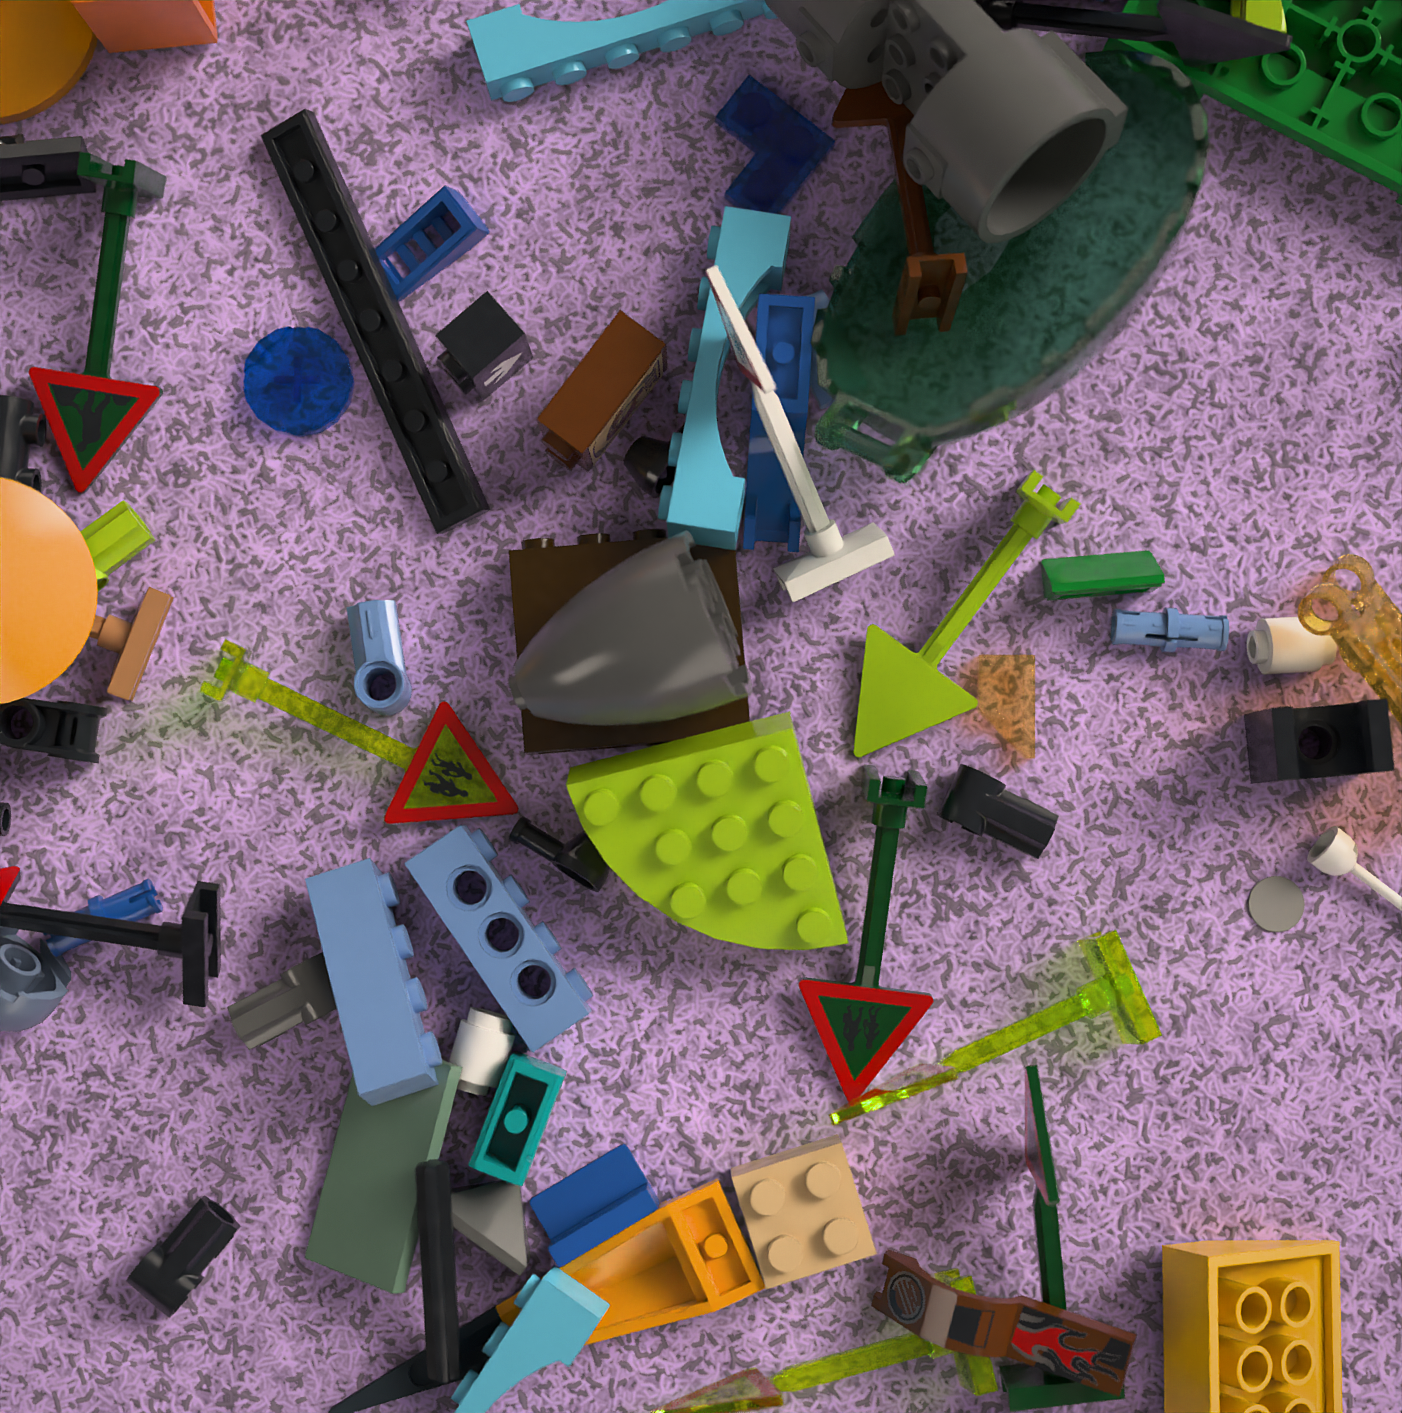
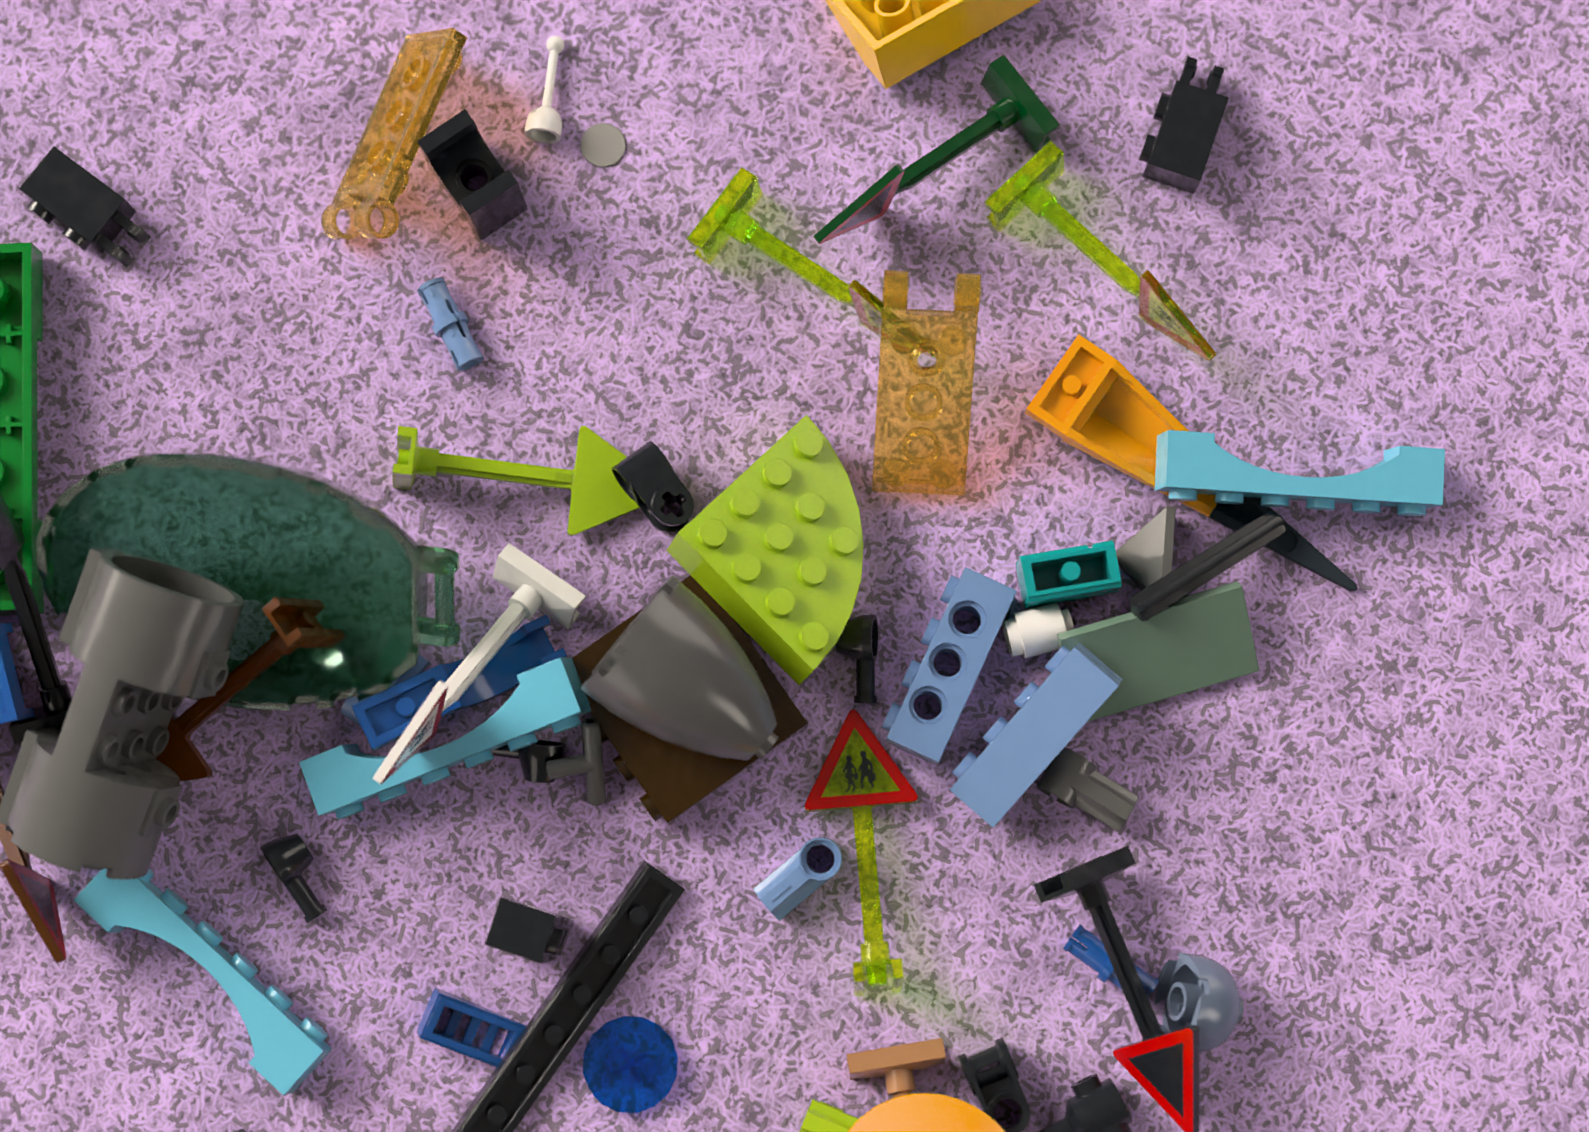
camera: 120 degrees left, 5 degrees down
(177, 1263) = (1320, 756): black piece -> none
(594, 1204) = (1096, 489): blue panel -> none
(602, 393) = (511, 821): reddish brown brick -> none
(618, 507) = (589, 763): none -> dark grey piece
(701, 155) = (289, 860): none -> black bar
(780, 1067) = (922, 409): none -> clear yellow hinge
(784, 145) = (243, 805): clear blue plate -> none
(802, 1211) = (1017, 341): tan brick -> none
(861, 1019) = (848, 381): dark green piece -> none
(877, 737) = (651, 480): none -> black piece
(987, 808) = (653, 381): black piece -> none
(1004, 1327) = (1002, 153): piece -> none
(1008, 698) = (565, 408): clear yellow tile -> none
(1100, 575) = (437, 394): green slope -> none
(1286, 647) = (416, 237): white brick -> none

